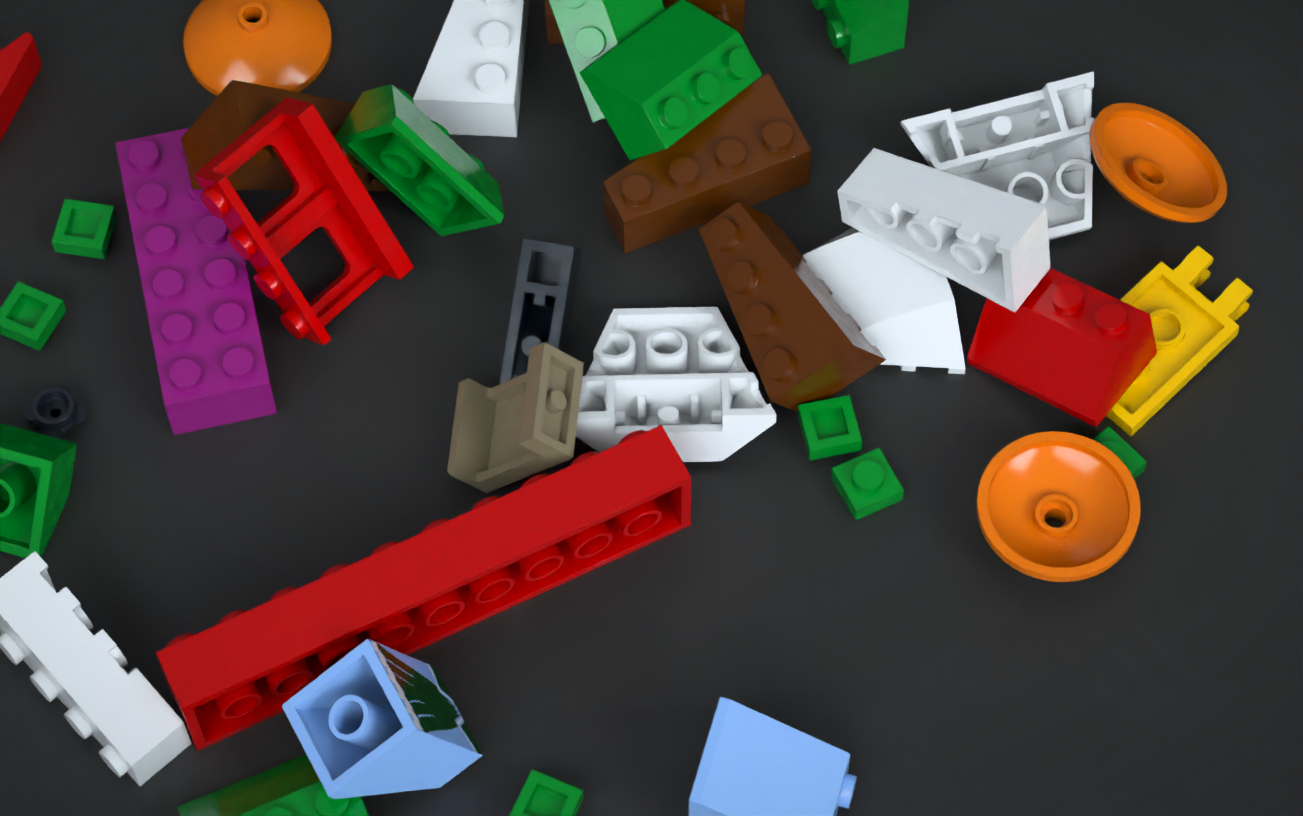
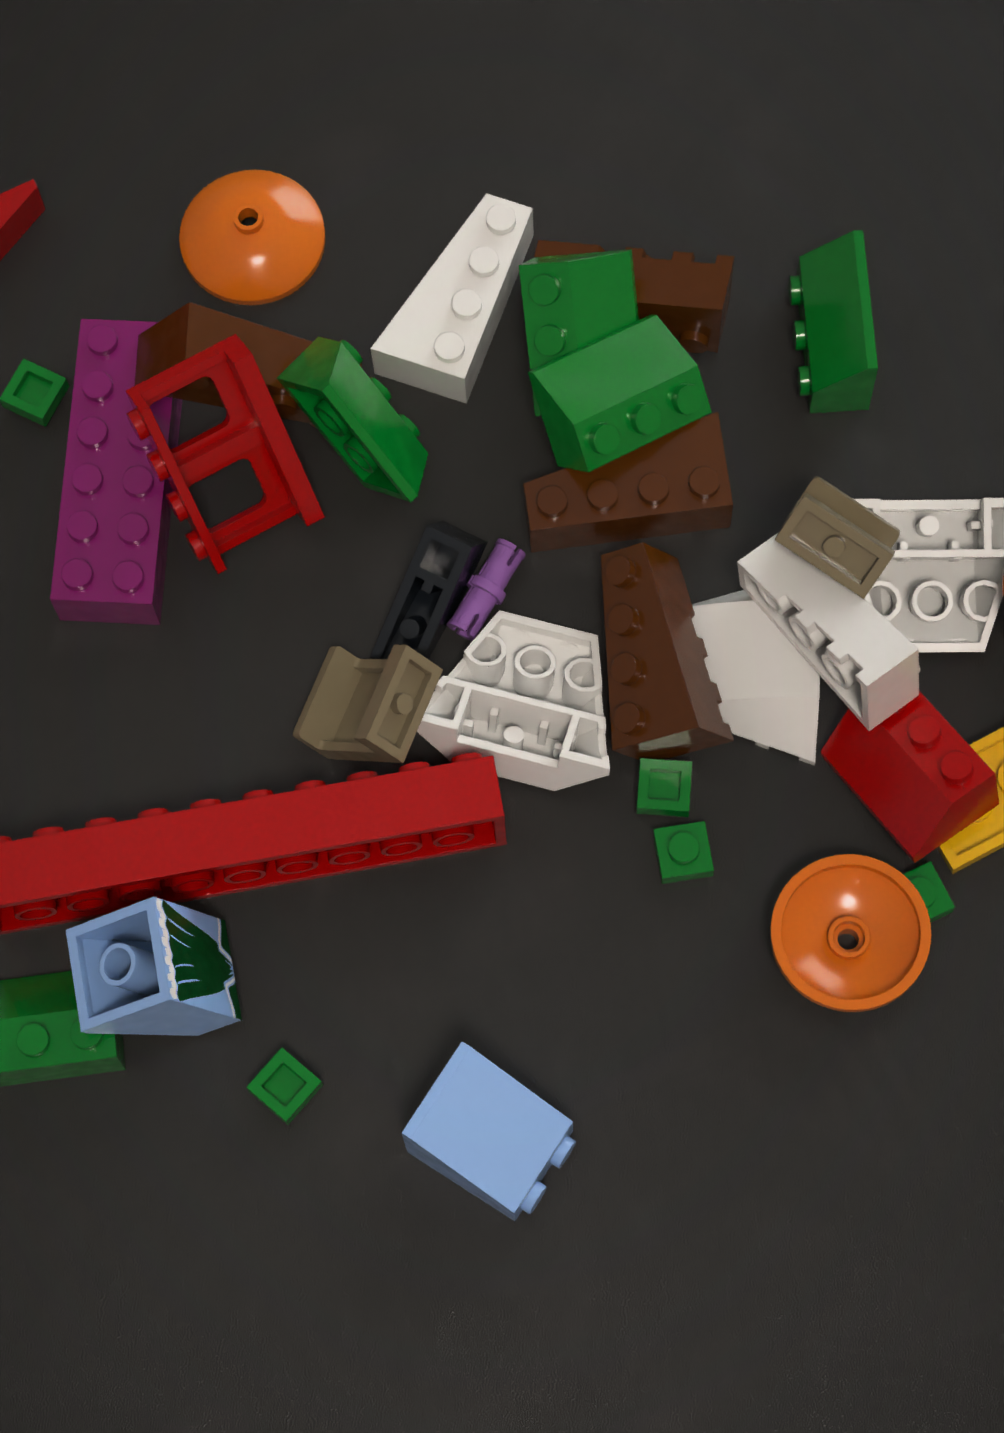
camera: 20 degrees right, 10 degrees up
(594, 294) = (486, 589): none -> medium lavender pin
(930, 138) = (839, 536): none -> dark tan panel

